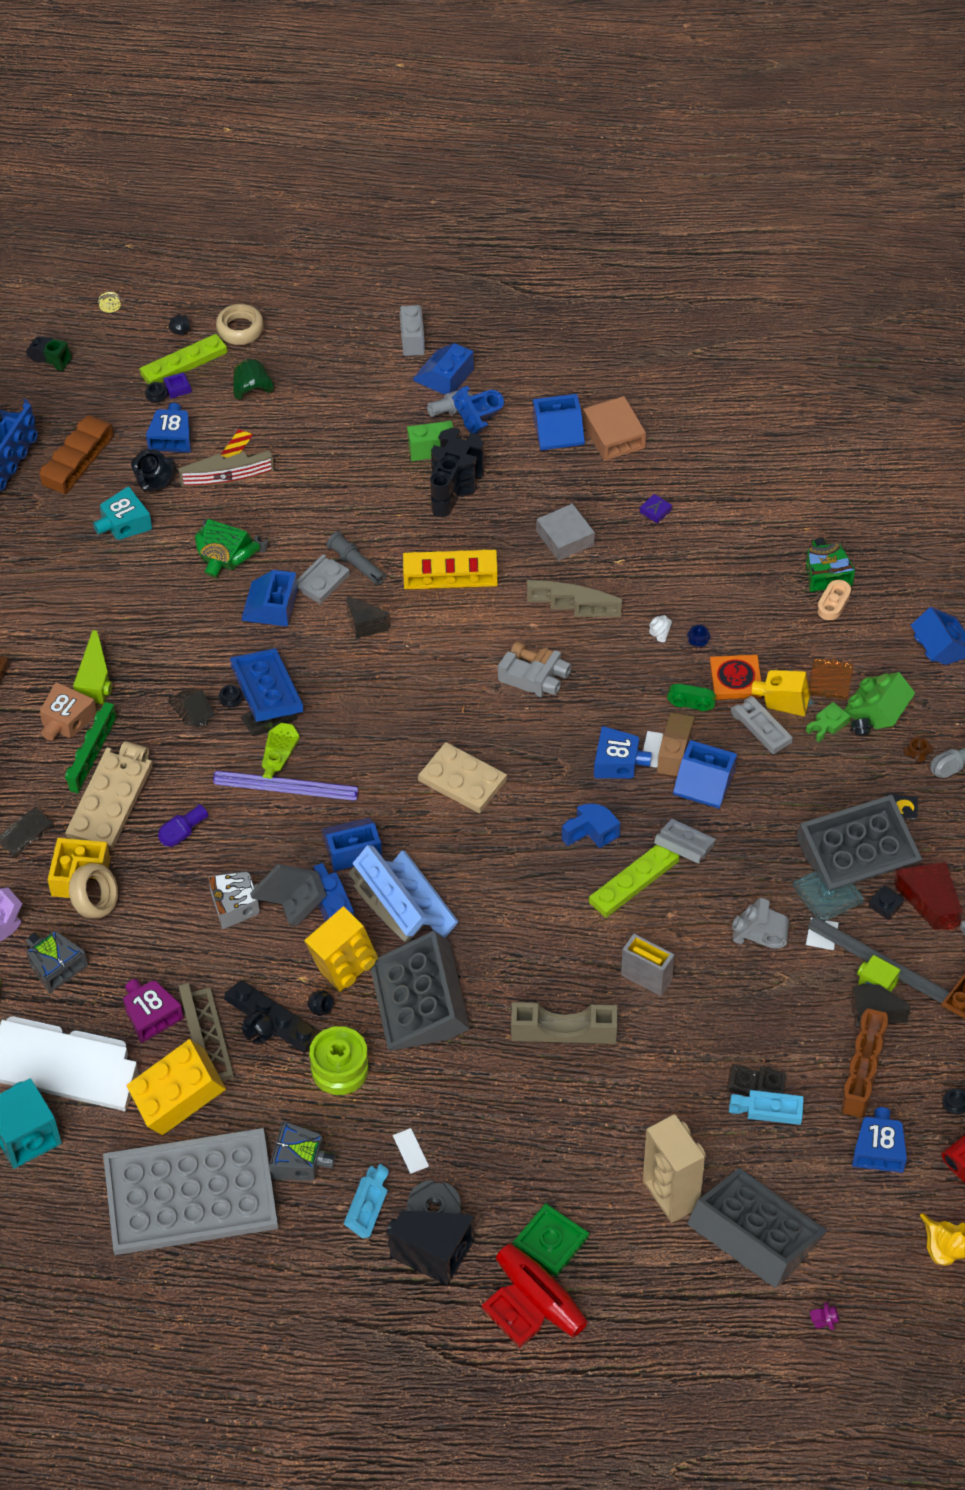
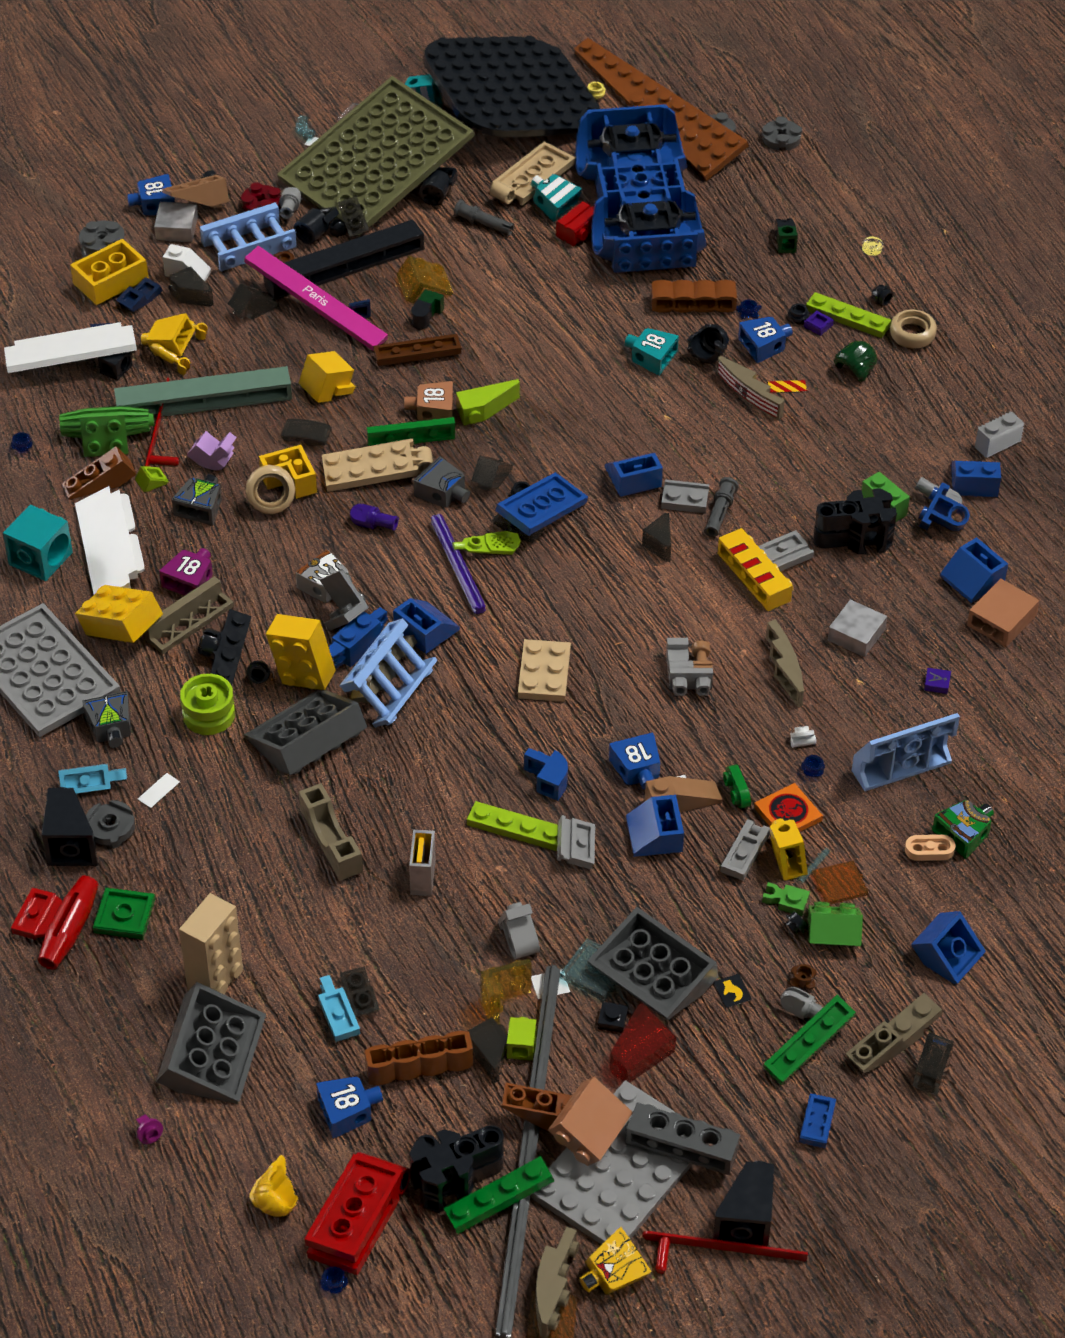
camera: 60 degrees right, 5 degrees down
(120, 420) = (748, 309): none -> clear blue plate
(178, 751) = (441, 484): none -> dark grey torso
(225, 546) = (666, 420): green torso -> none
(442, 535) = (787, 550): none -> light grey plate
(731, 563) = (905, 753): none -> light blue piece
(827, 975) = (503, 983): none -> clear yellow bracket

